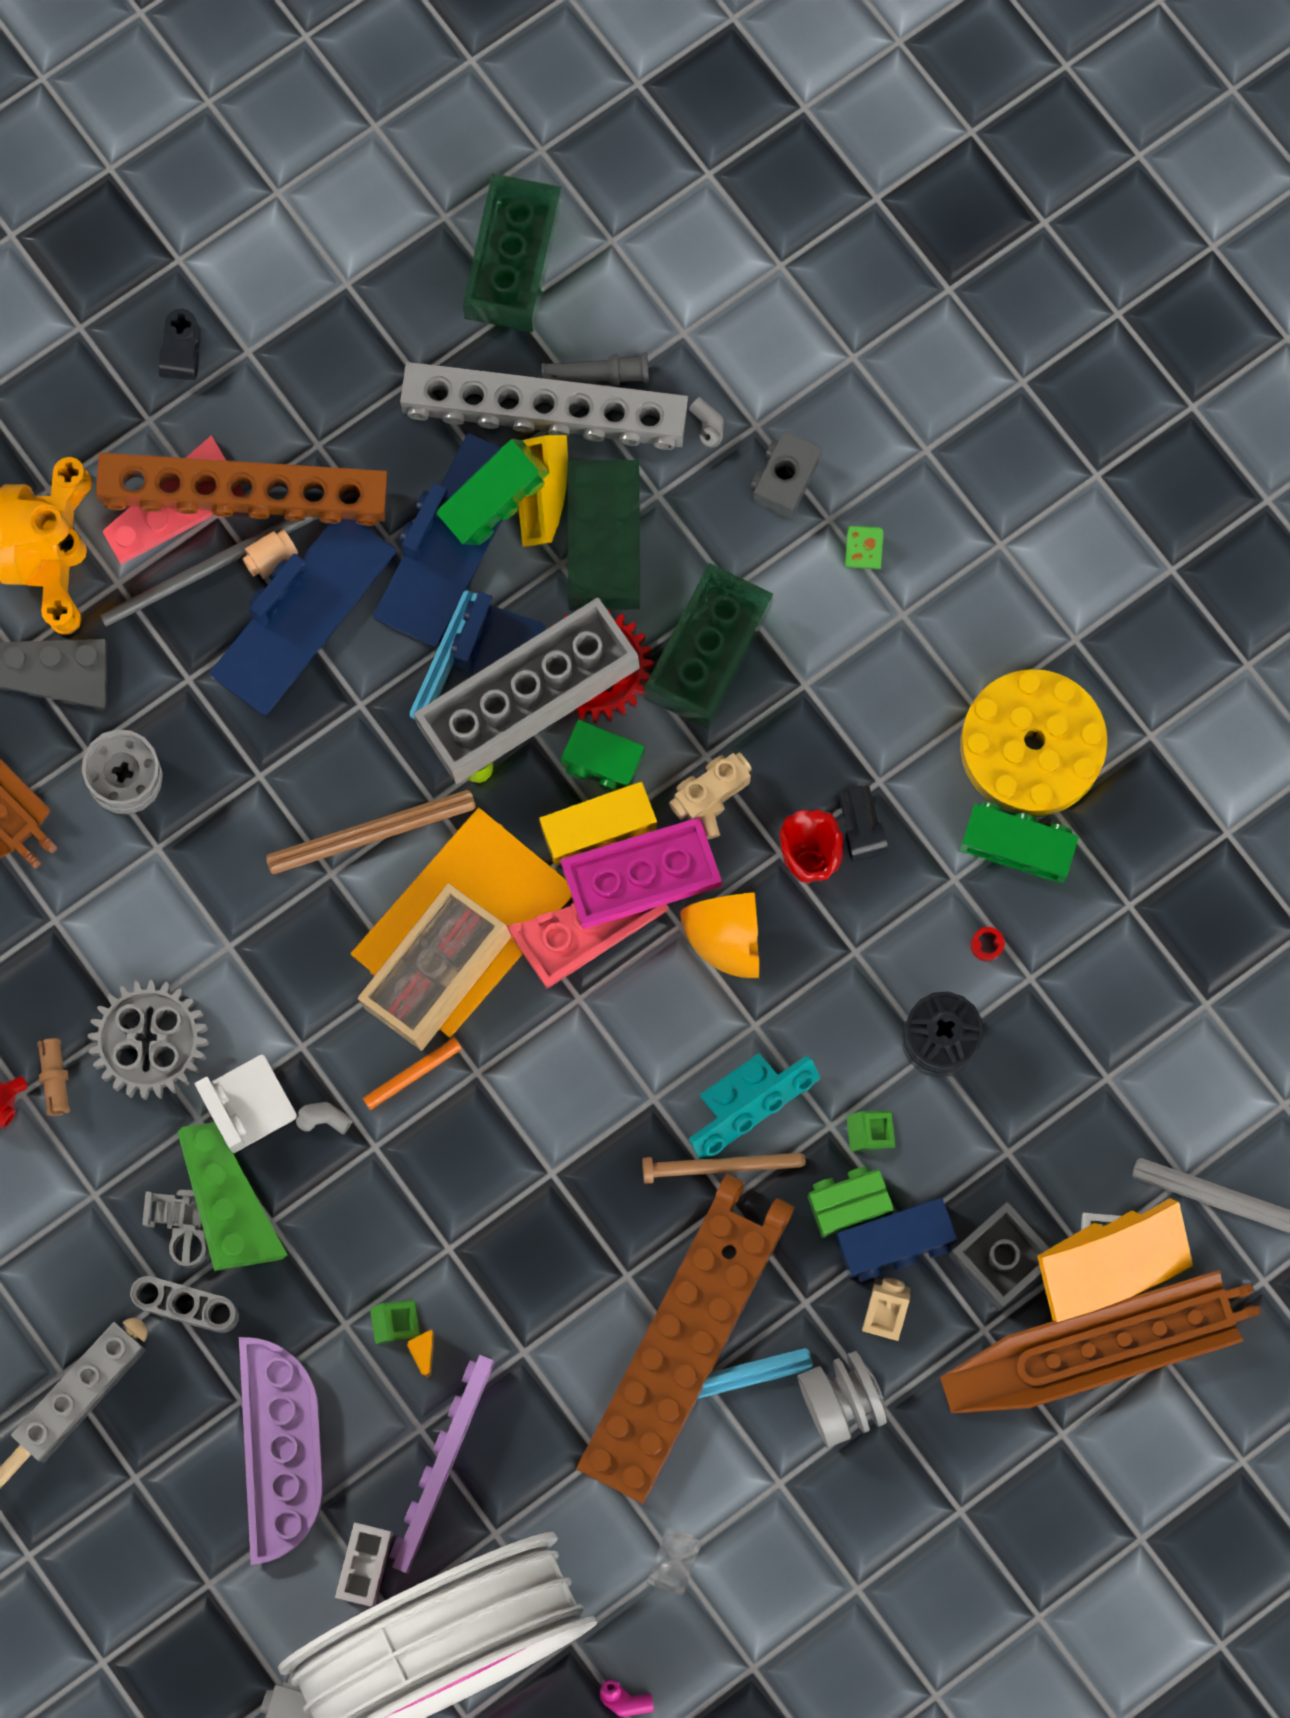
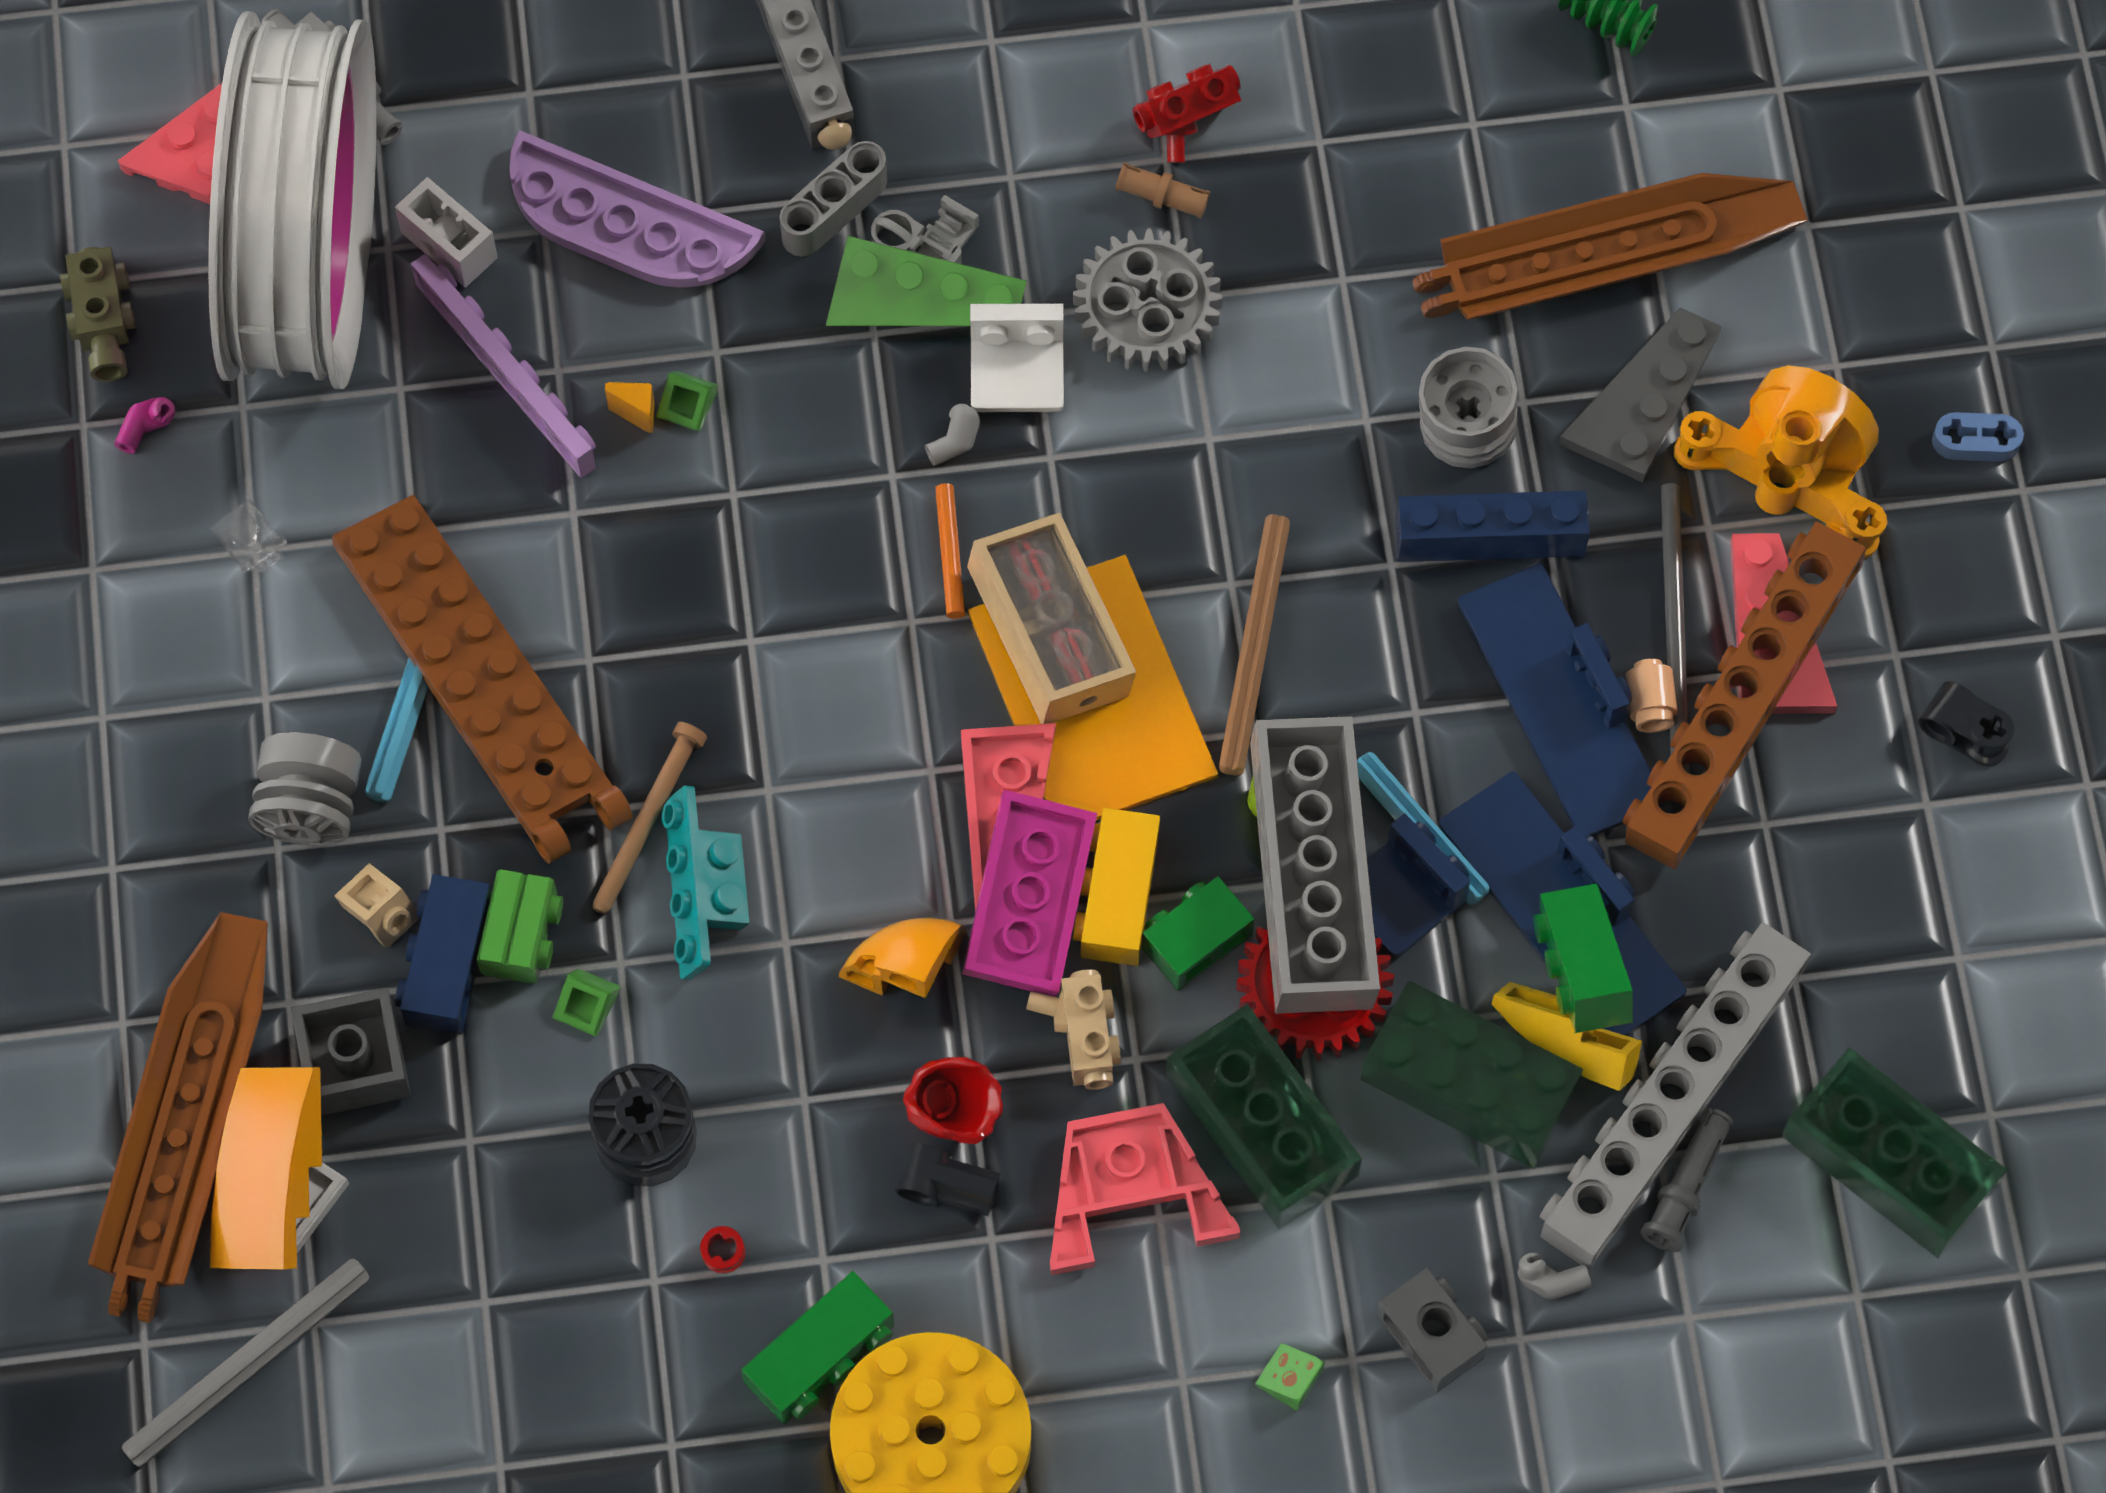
camera: 120 degrees right, 10 degrees down
(201, 716) = (1492, 526): none -> dark blue brick
(786, 720) = (1128, 1164): none -> coral wing

